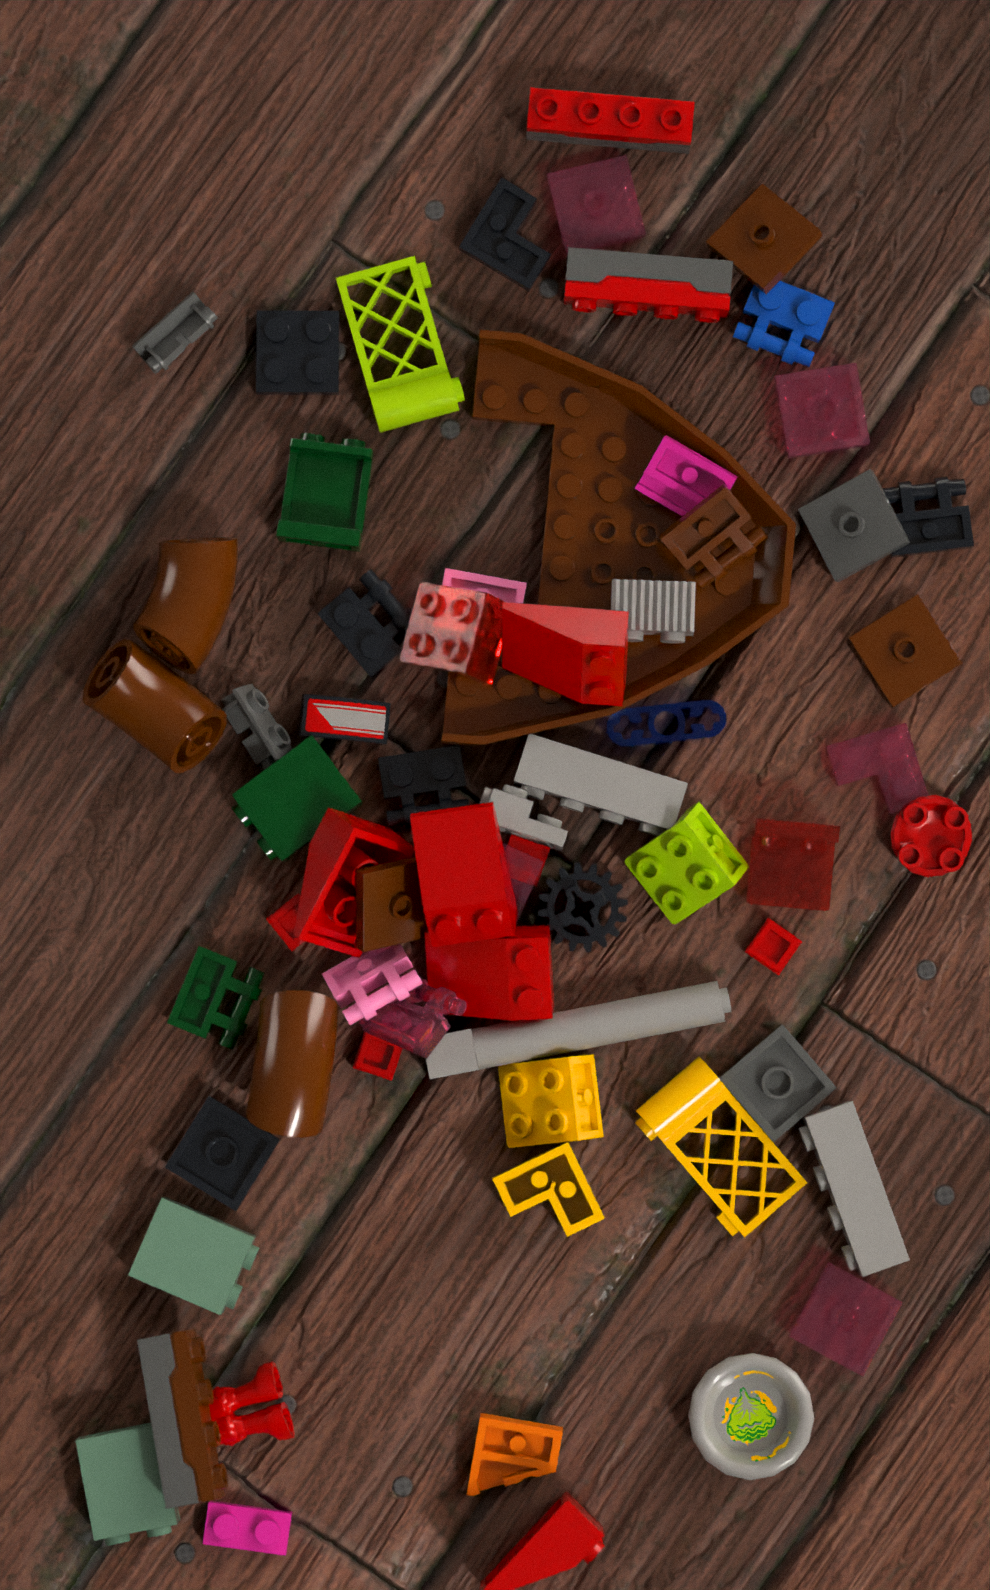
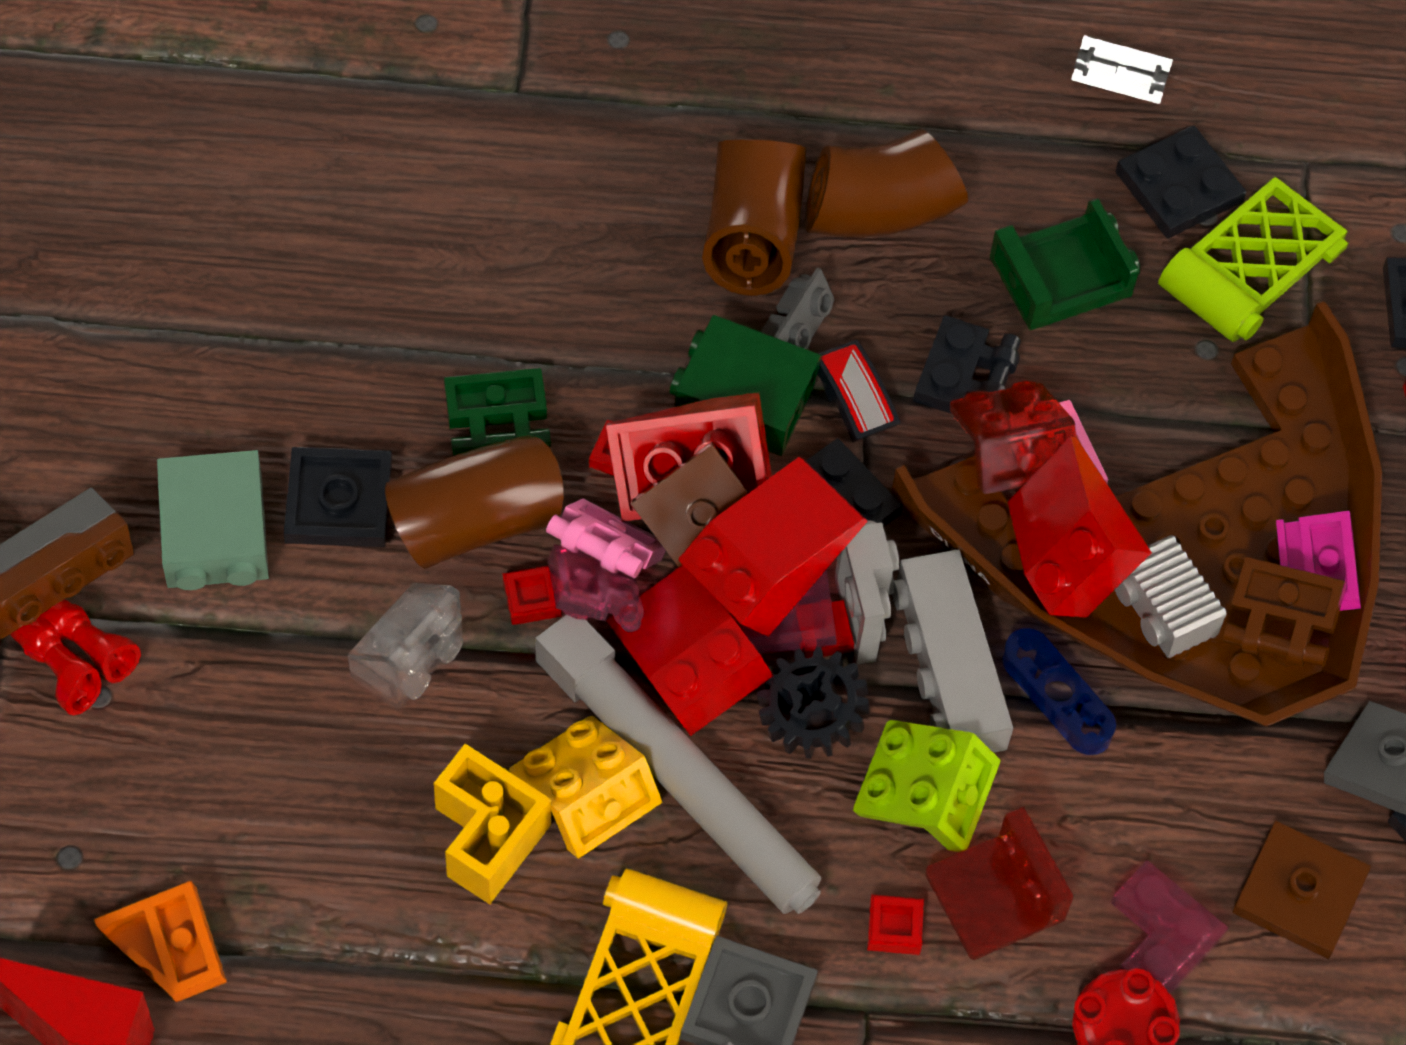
camera: 55 degrees right, 25 degrees down
(377, 1170) = (409, 643): none -> clear slope

